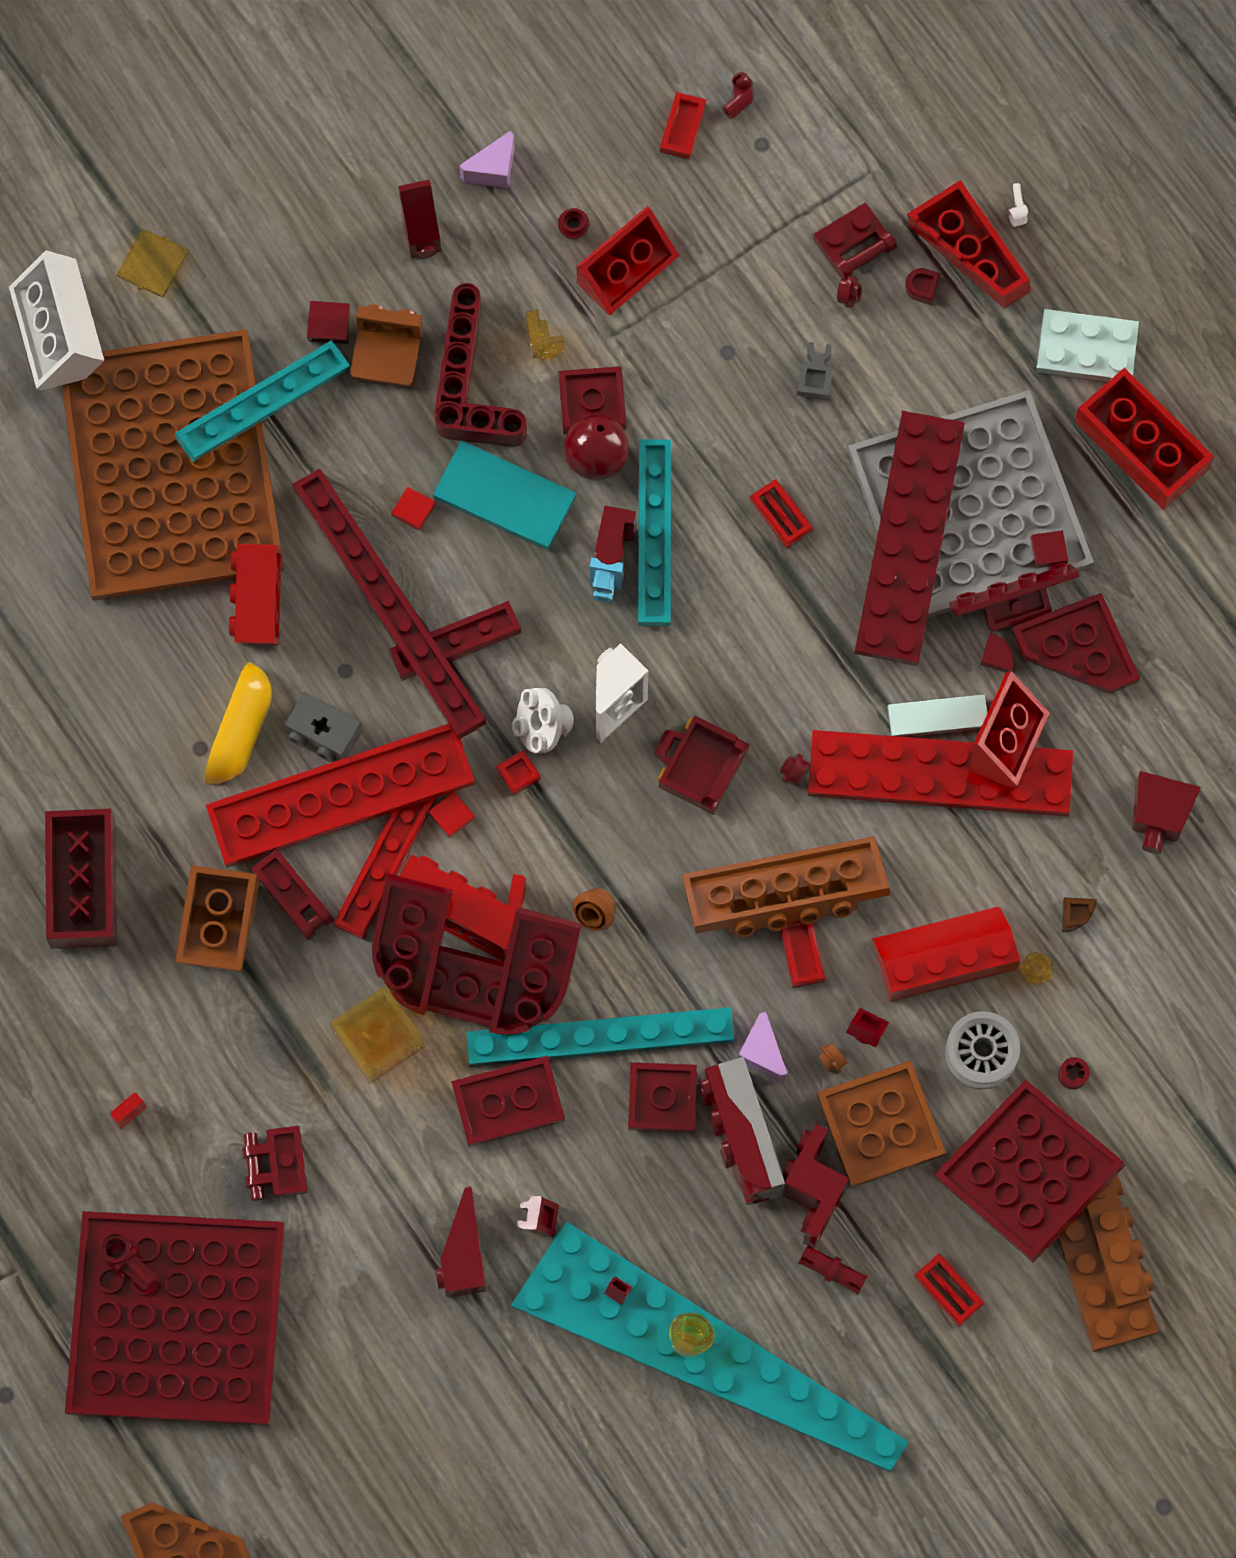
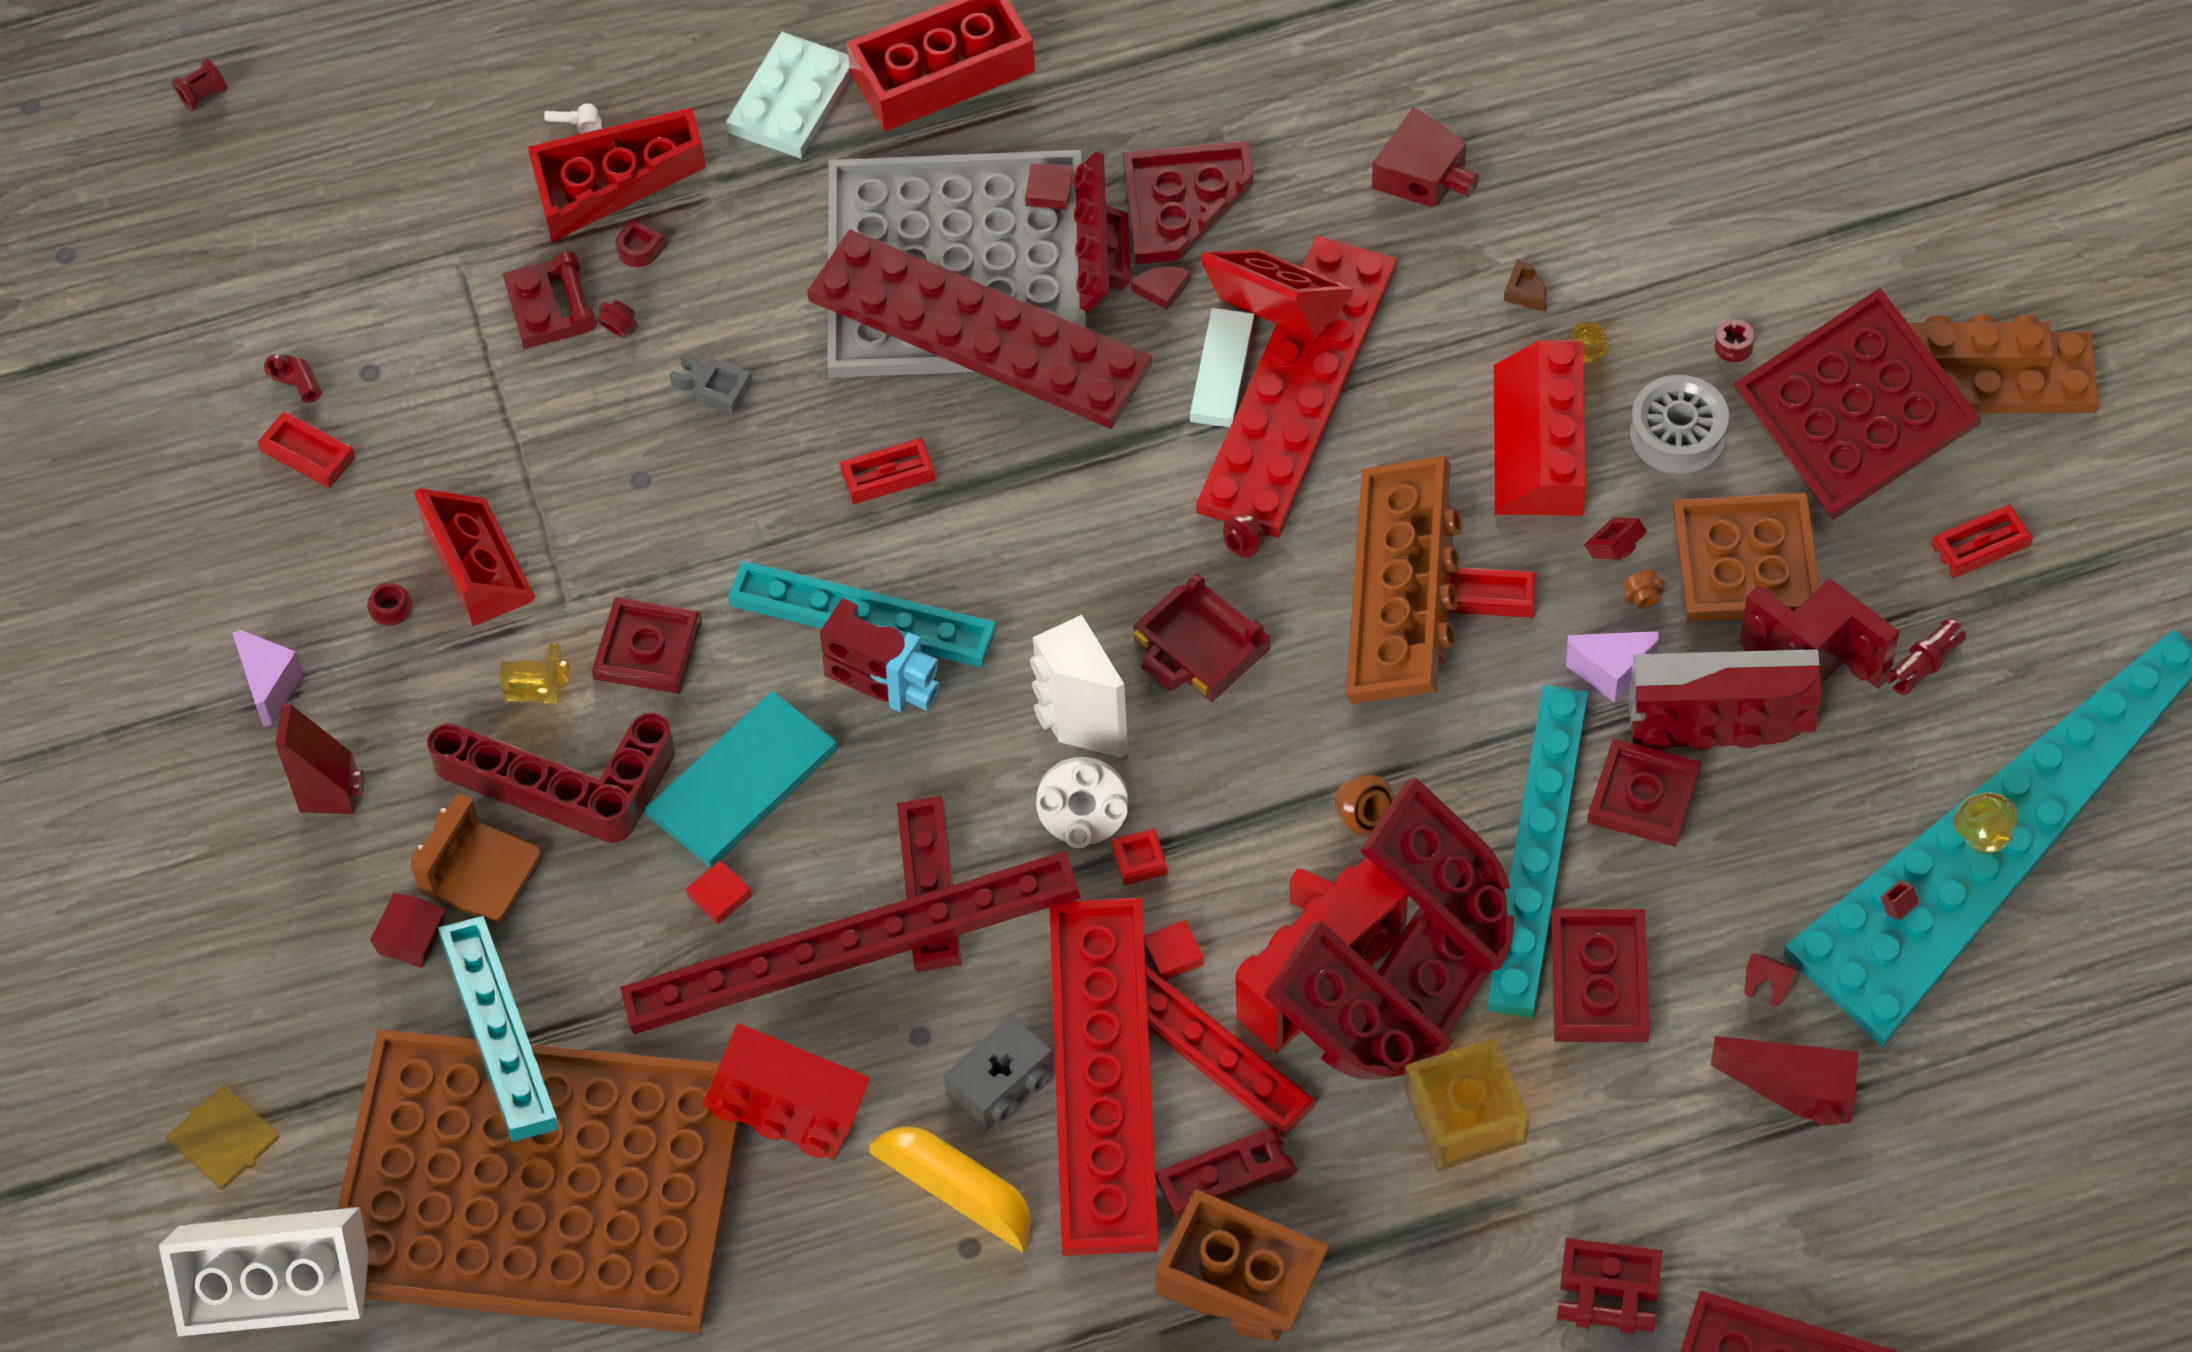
camera: 70 degrees left, 15 degrees down
(596, 447) = (723, 642): dark red piece -> none

